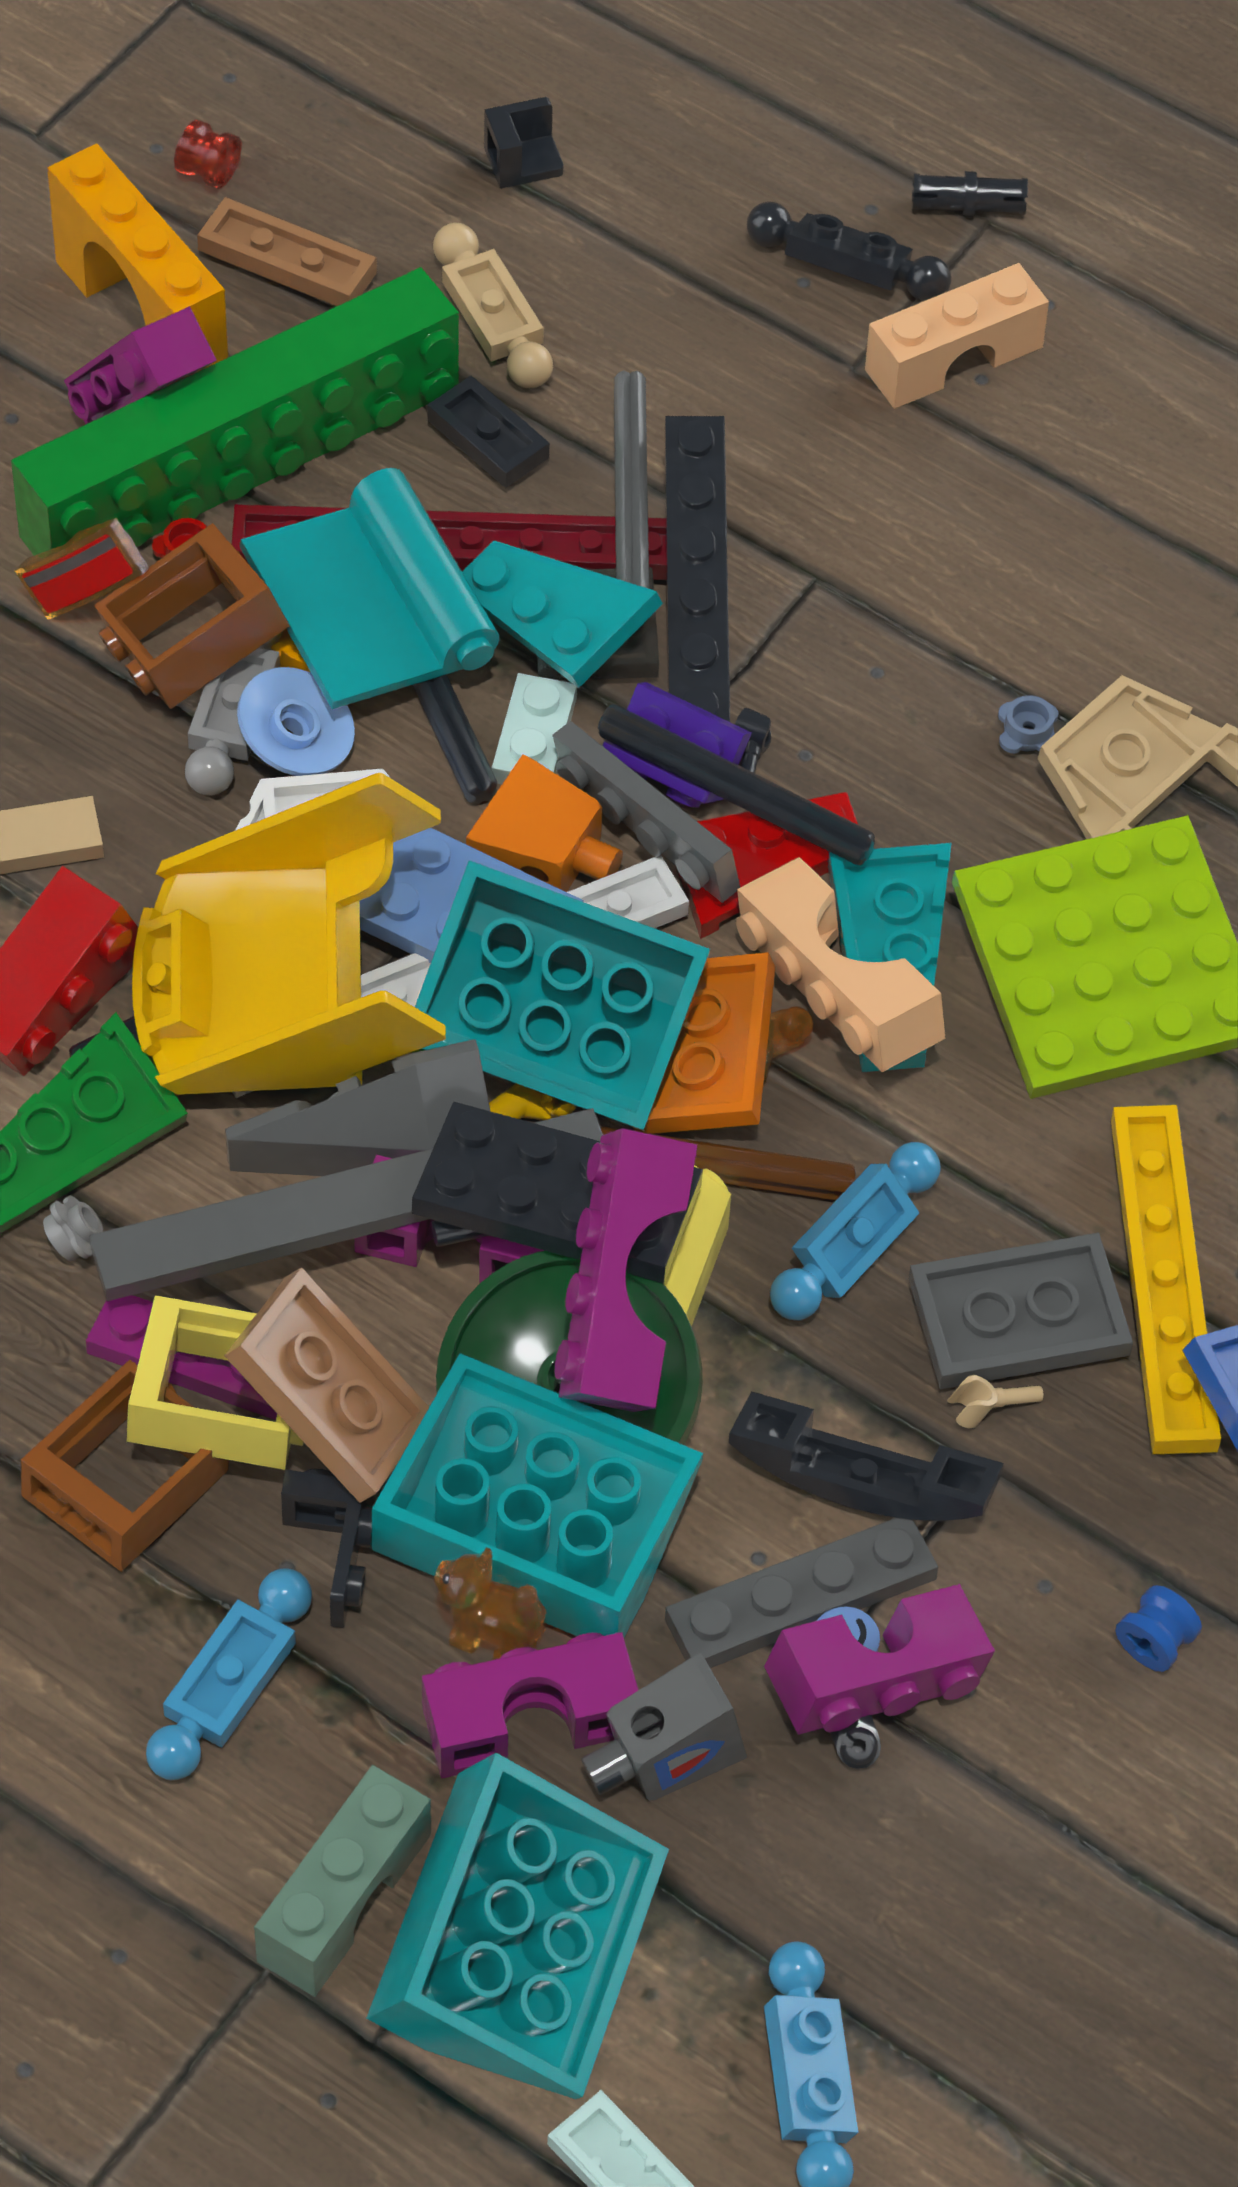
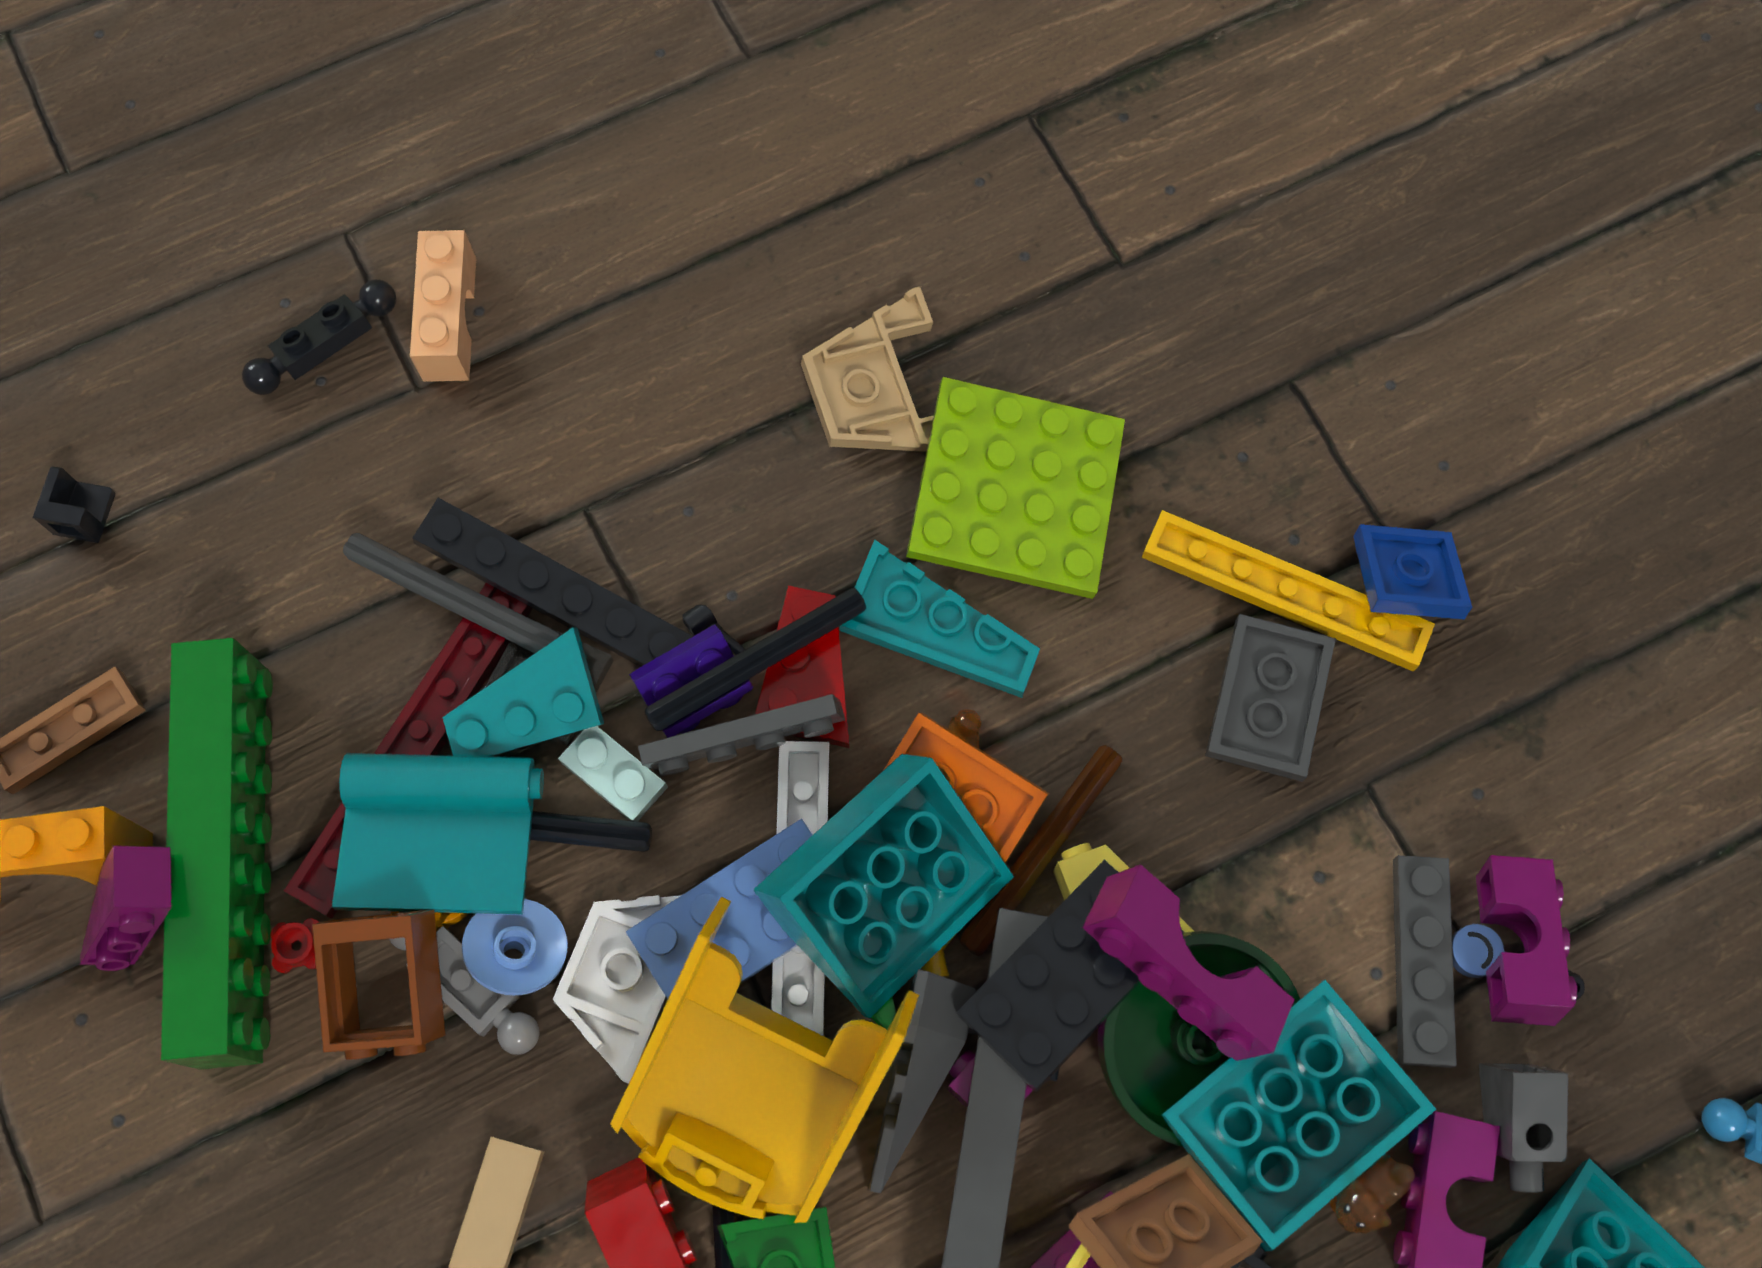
camera: 60 degrees left, 15 degrees up
(82, 569) = (285, 1044): slope -> none
(488, 431) = (325, 667): black plate -> none
(493, 305) = (210, 604): tan plate -> none
(545, 828) = (714, 814): orange torso -> none
(855, 1231) = (1159, 773): dark azure plate -> none
(861, 1475) = (1356, 866): black slope -> none
(877, 1006) = (1009, 662): light nougat arch -> none
(969, 193) = (319, 232): black pin -> none
(981, 1397) = (1329, 756): tan hand -> none
(1026, 712) = (792, 425): sand blue plate -> none
(1158, 1628) = (1559, 740): blue wheel -> none

